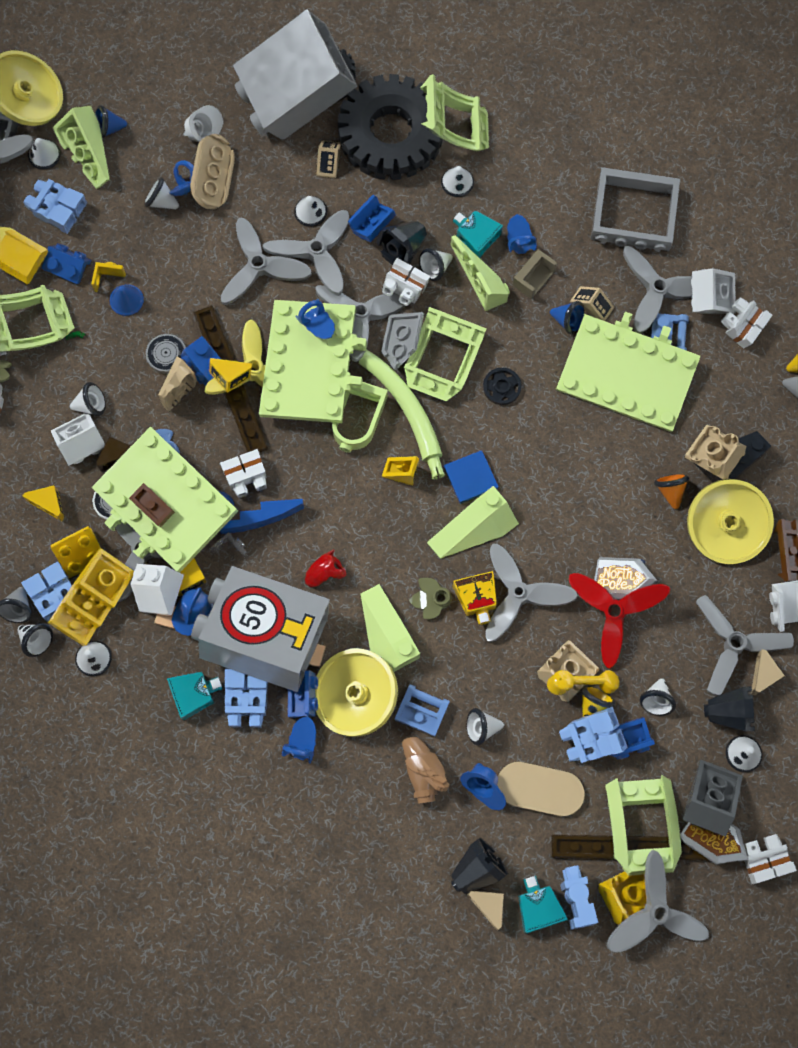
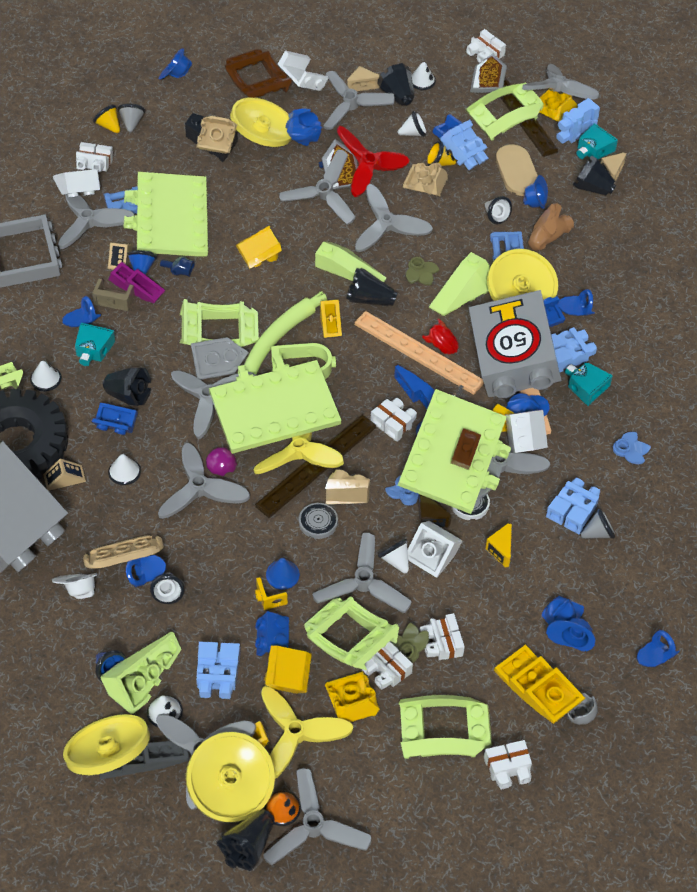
camera: 115 degrees left, 20 degrees down
(35, 639) = (617, 504): hat -> none
(76, 551) = (526, 506): yellow bracket -> none
(79, 347) = (365, 571): none -> light grey piece
(90, 697) = (633, 449): none -> medium blue plate
(91, 597) = (559, 470): yellow slope -> none
(93, 658) = (604, 461): white hat -> none
(198, 357) = (313, 482): blue bracket -> none
(229, 373) = (321, 444): yellow slope -> none
(275, 291) = (221, 461): none -> magenta hair
(316, 320) = (239, 403): blue piece -> none
(325, 239) = (173, 438): light grey piece -> none
(327, 539) = (419, 352): none -> light nougat tile
(407, 287) = (165, 372): white hips -> none
(421, 524) = (370, 290): none -> black cone
(432, 260) = (138, 355): white hat -> none
(470, 476) = (310, 280): blue tile -> none
(477, 595) = (402, 243): yellow torso -> none
(484, 280) = (137, 323): yellowish green wedge -> none
(502, 386) = (222, 288): black wheel -> none
(539, 442) = (259, 248): none -> yellow slope
(541, 302) = (143, 286): none -> magenta slope
(548, 353) = (180, 266): none -> dark blue piece
(563, 681) = (440, 166): yellow piece -> none
(599, 534) = (330, 178): none -> light grey piece
(672, 488) = (250, 162): orange hat -> none
(701, 561) = (303, 126): none -> blue hair
(713, 798) = (465, 78): dark grey slope -> none

